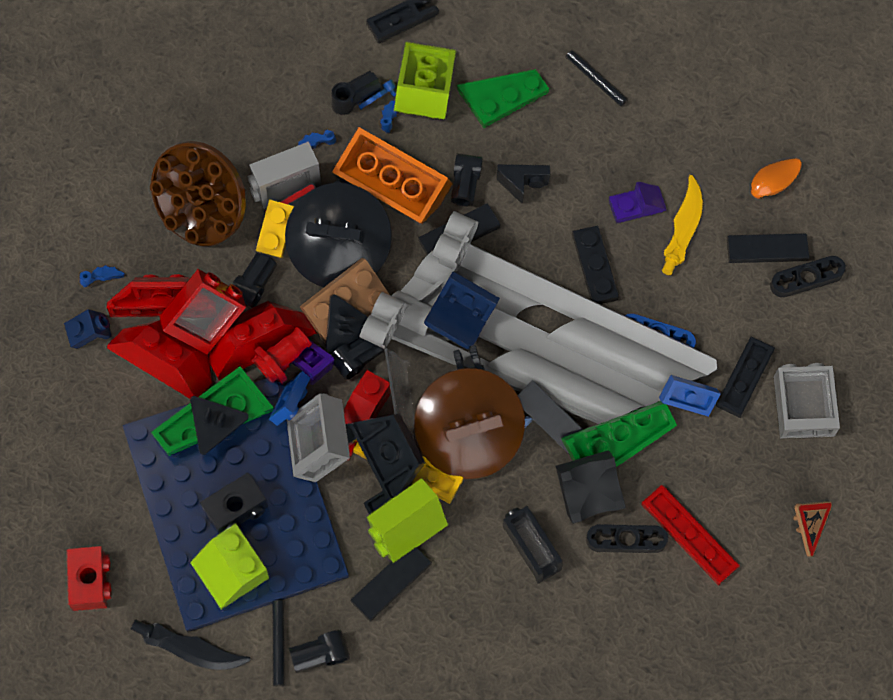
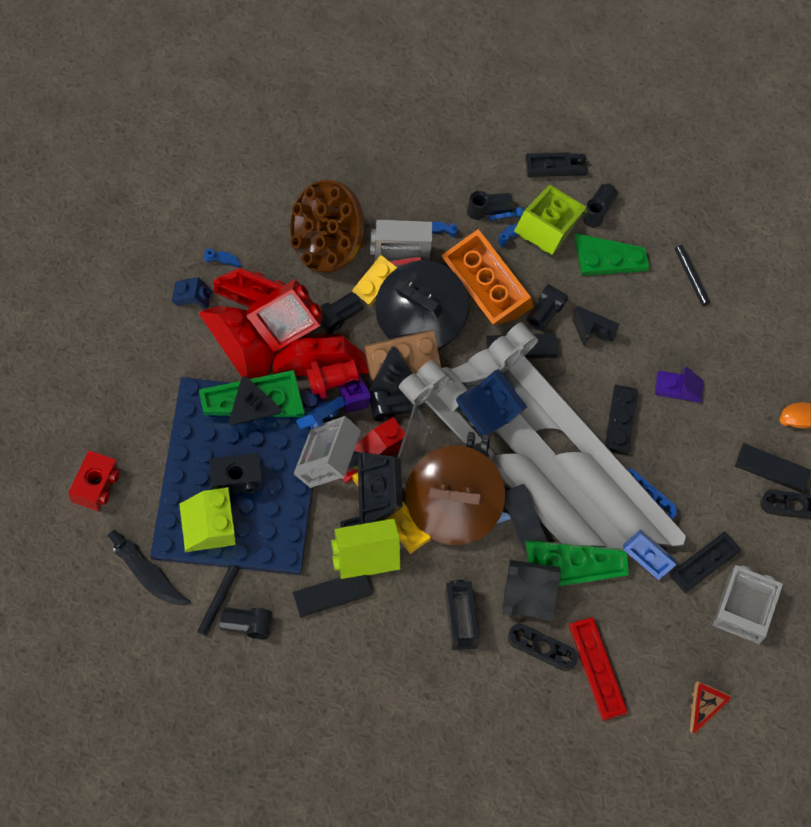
camera: 20 degrees right, 5 degrees down
(468, 42) = (599, 205): none -> black piece
(684, 226) = (710, 421): yellow sword -> none

